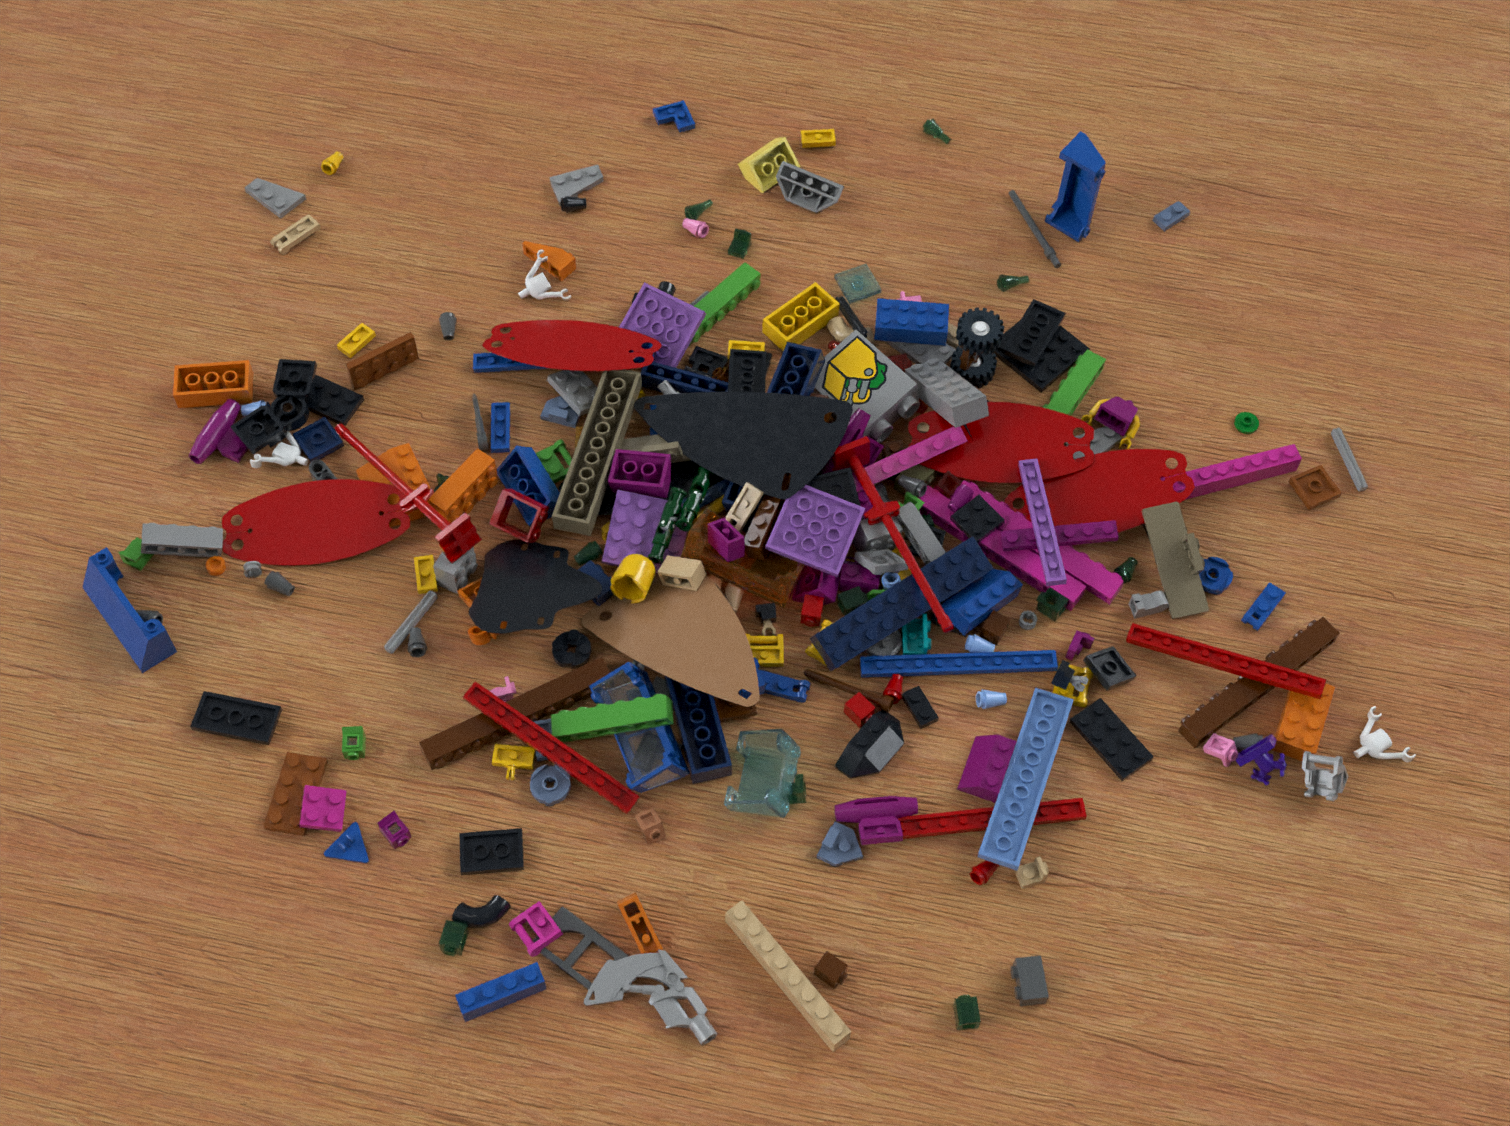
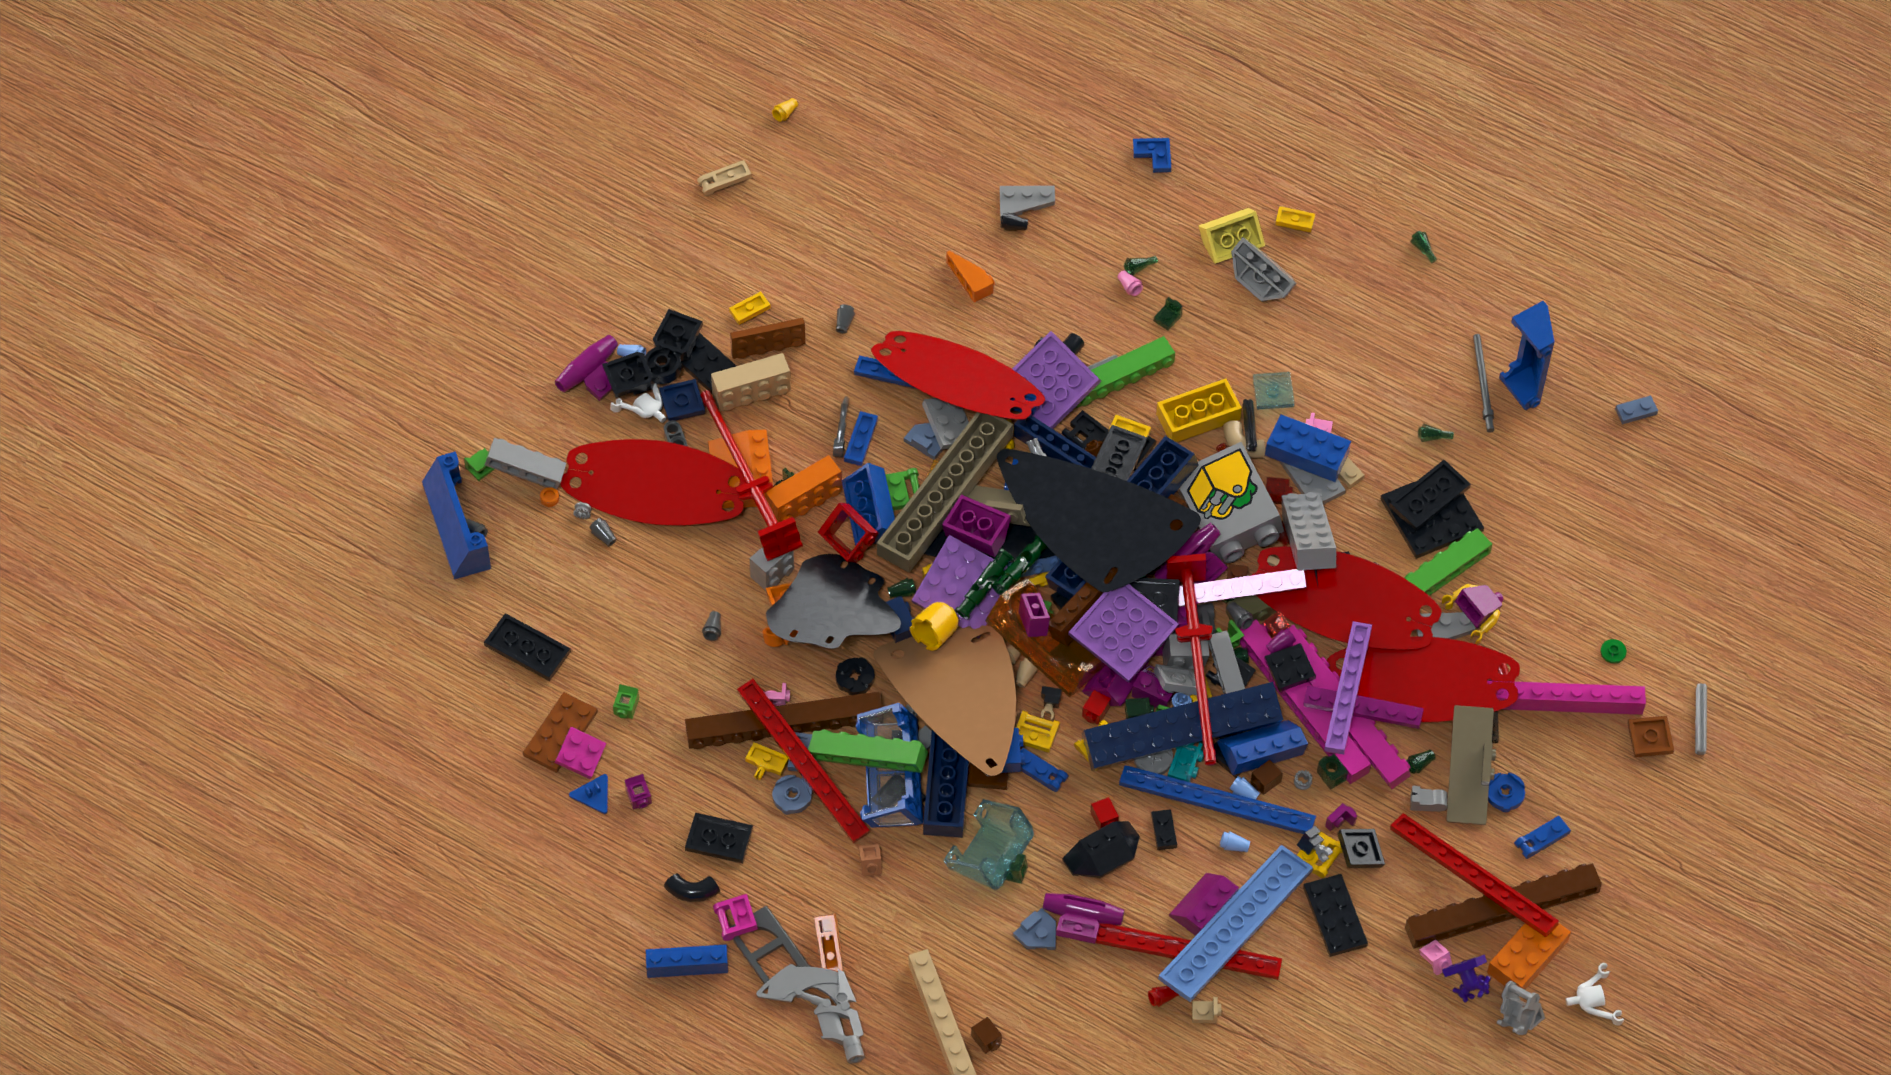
camera: 20 degrees right, 0 degrees up
(213, 383) = (598, 314): orange brick -> none
(274, 197) = (715, 130): light grey wing -> none
(379, 404) = (751, 382): none -> tan brick
(410, 622) = (713, 604): light grey axle -> none
(425, 574) = (741, 564): yellow plate -> none
(453, 938) = (660, 902): clear green brick -> none
(539, 284) = (950, 300): white piece -> none
(681, 573) = (981, 634): tan brick -> none
(744, 506) = (1062, 588): tan plate -> none
(884, 702) = (1131, 815): reddish brown piece -> none
(894, 688) = (1144, 806): red cone -> none
(978, 336) = (1357, 502): black plate -> none
(1246, 741) = (1460, 955): dark grey cone -> none

